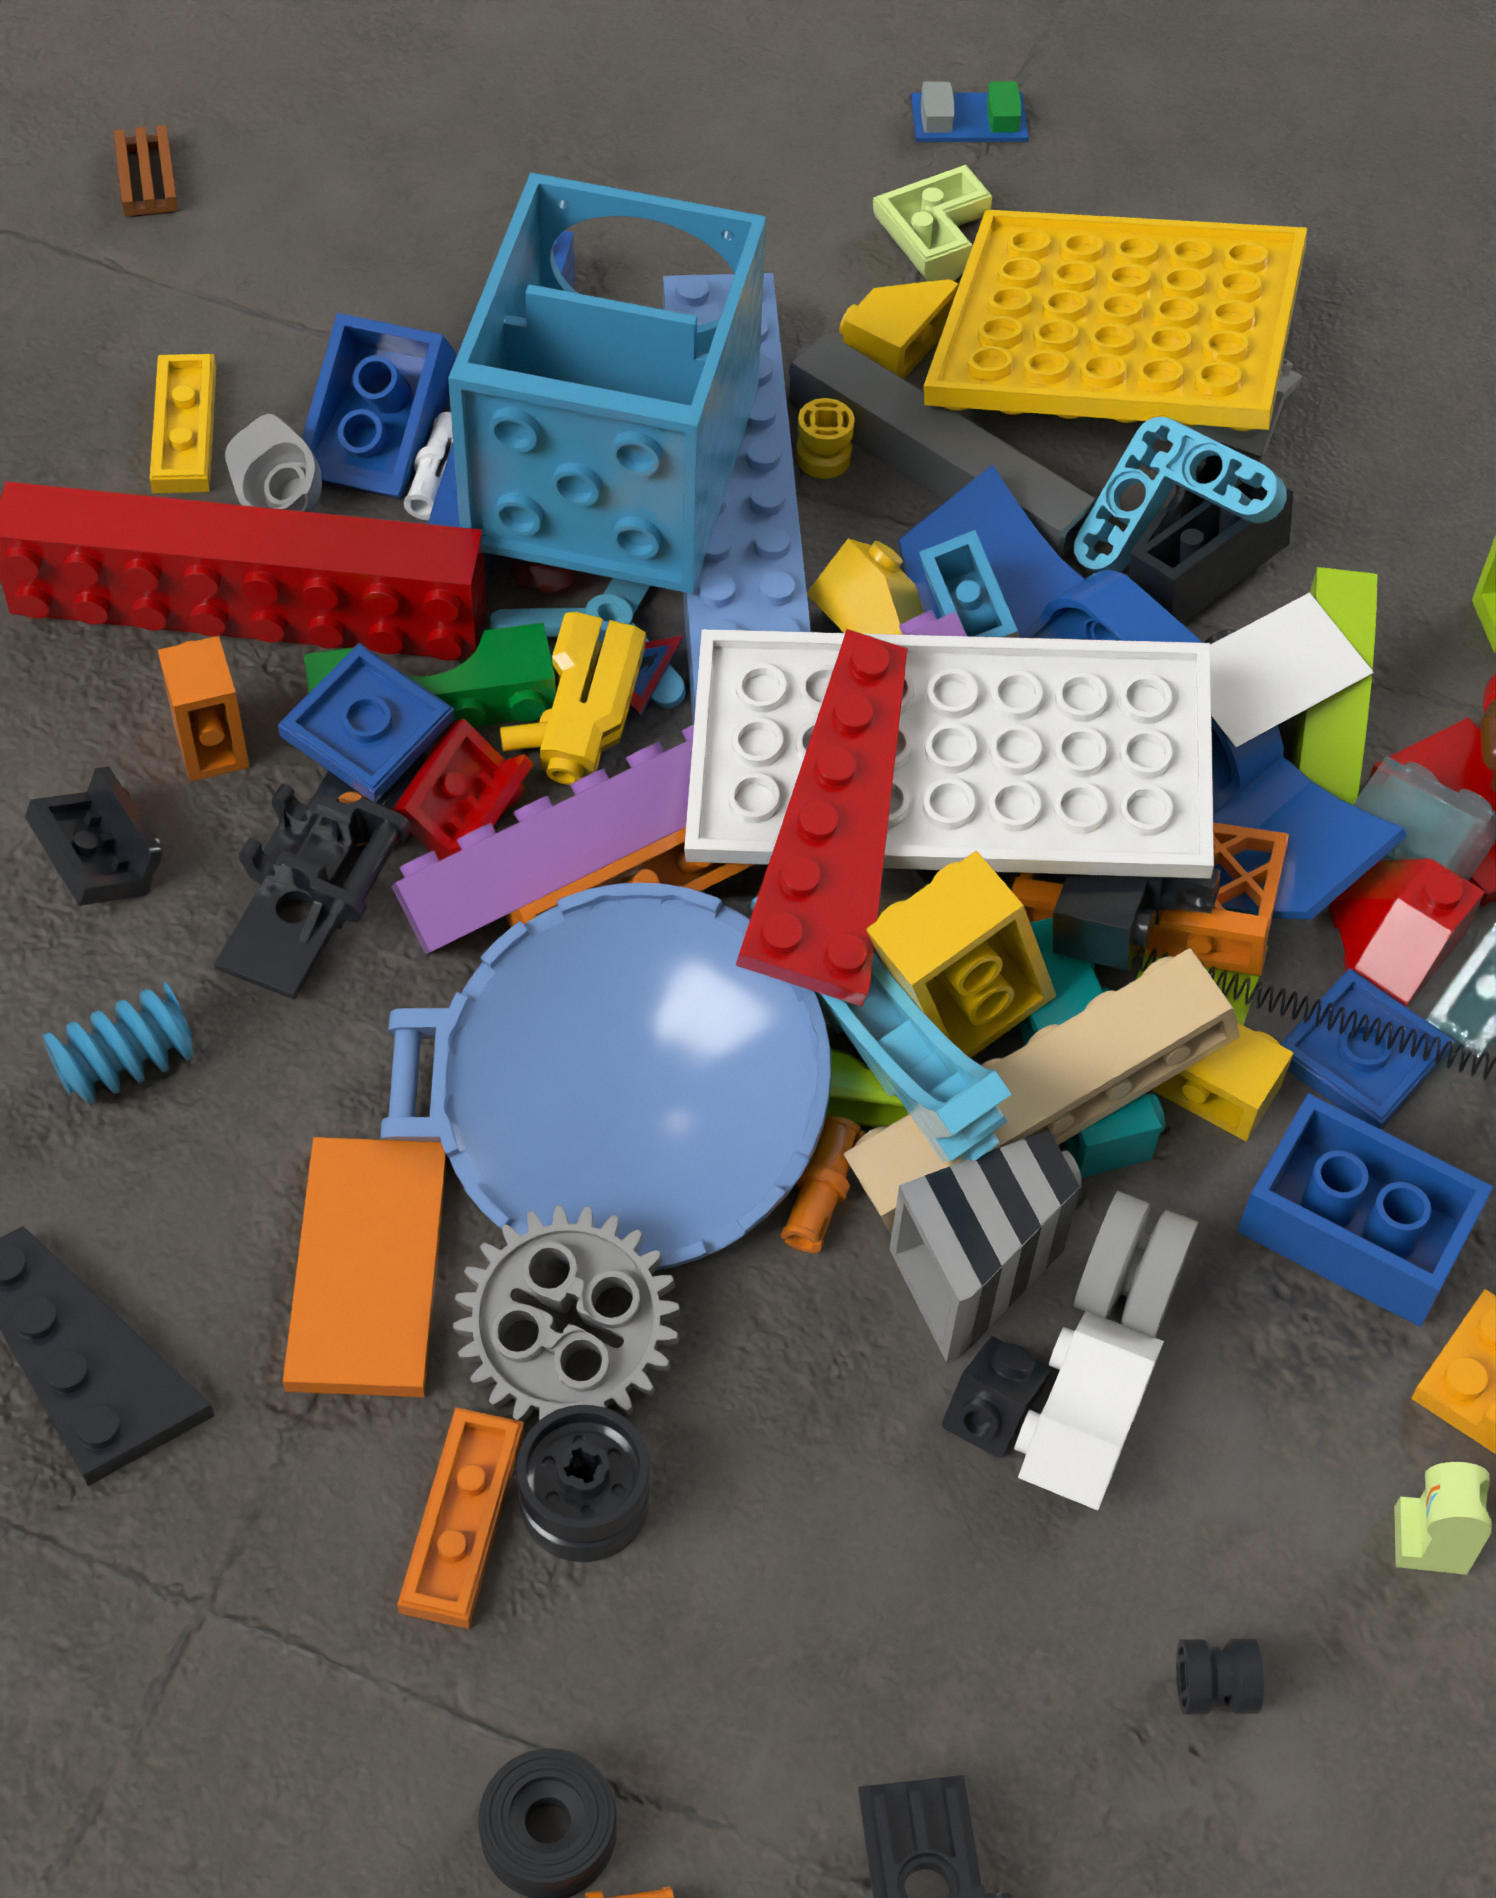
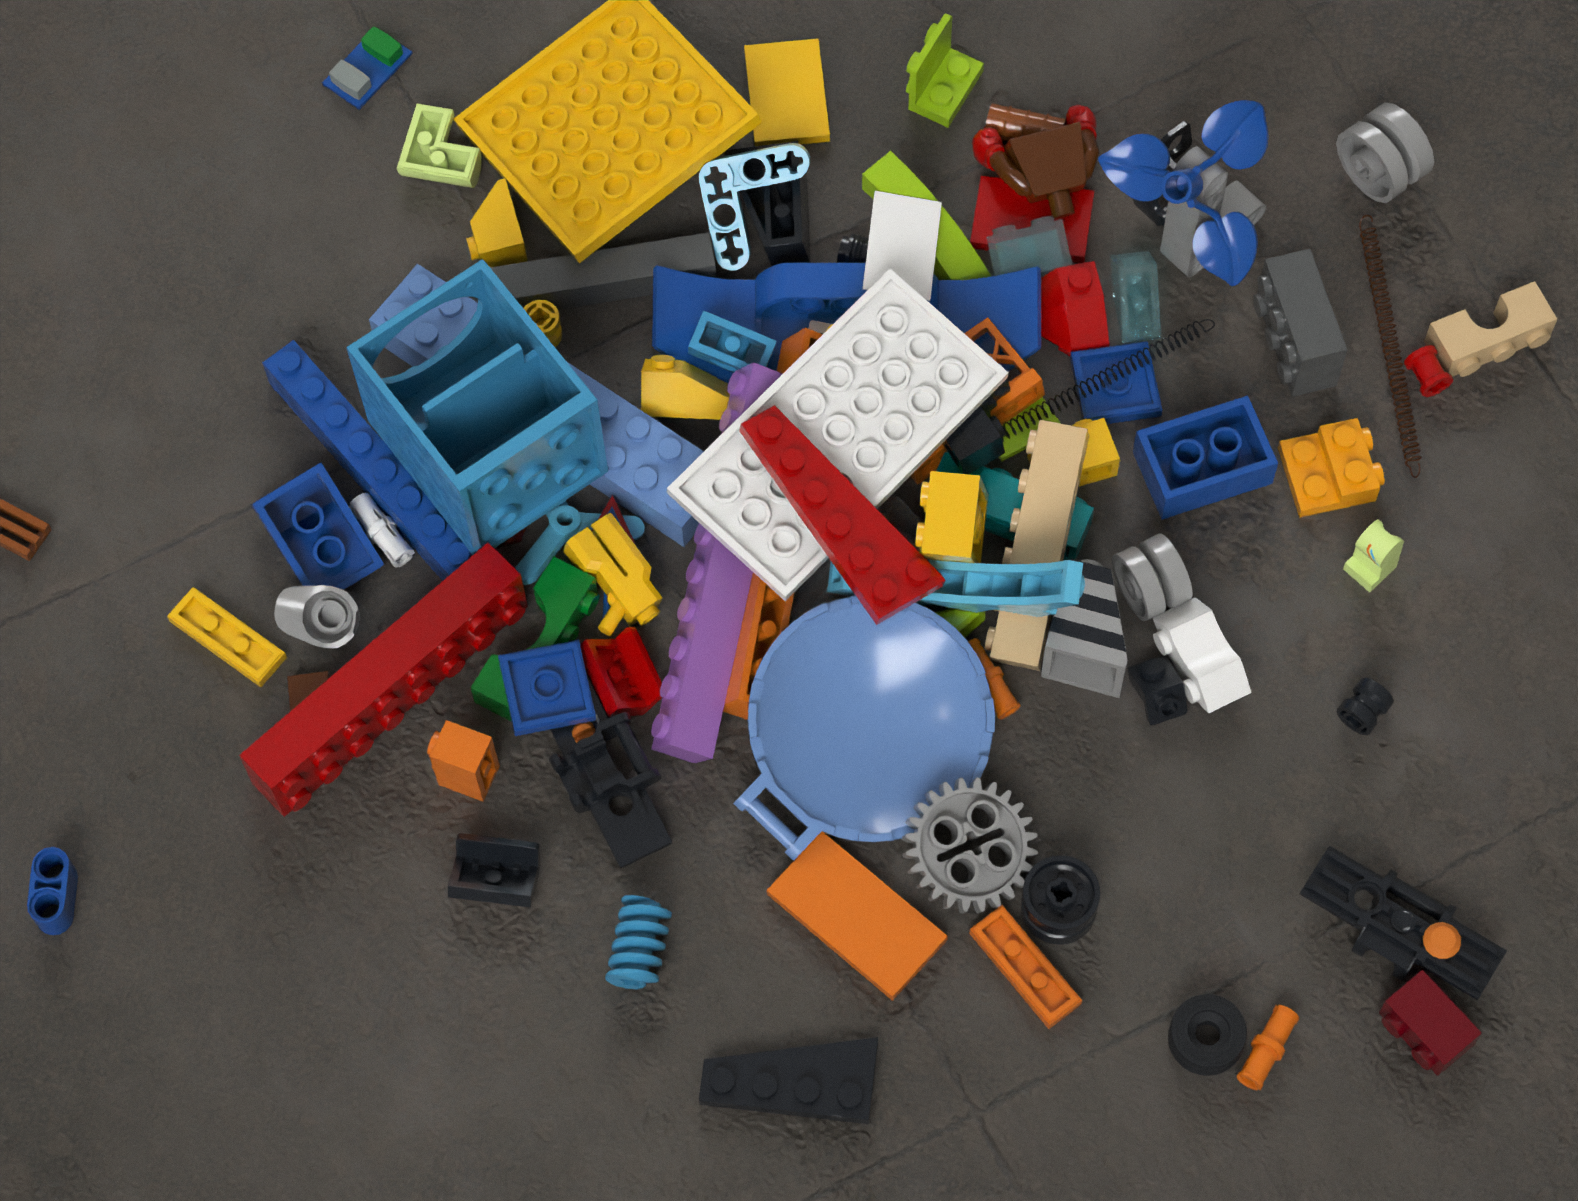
camera: 45 degrees left, 10 degrees up
(1358, 471) = (787, 92): none -> yellow tile

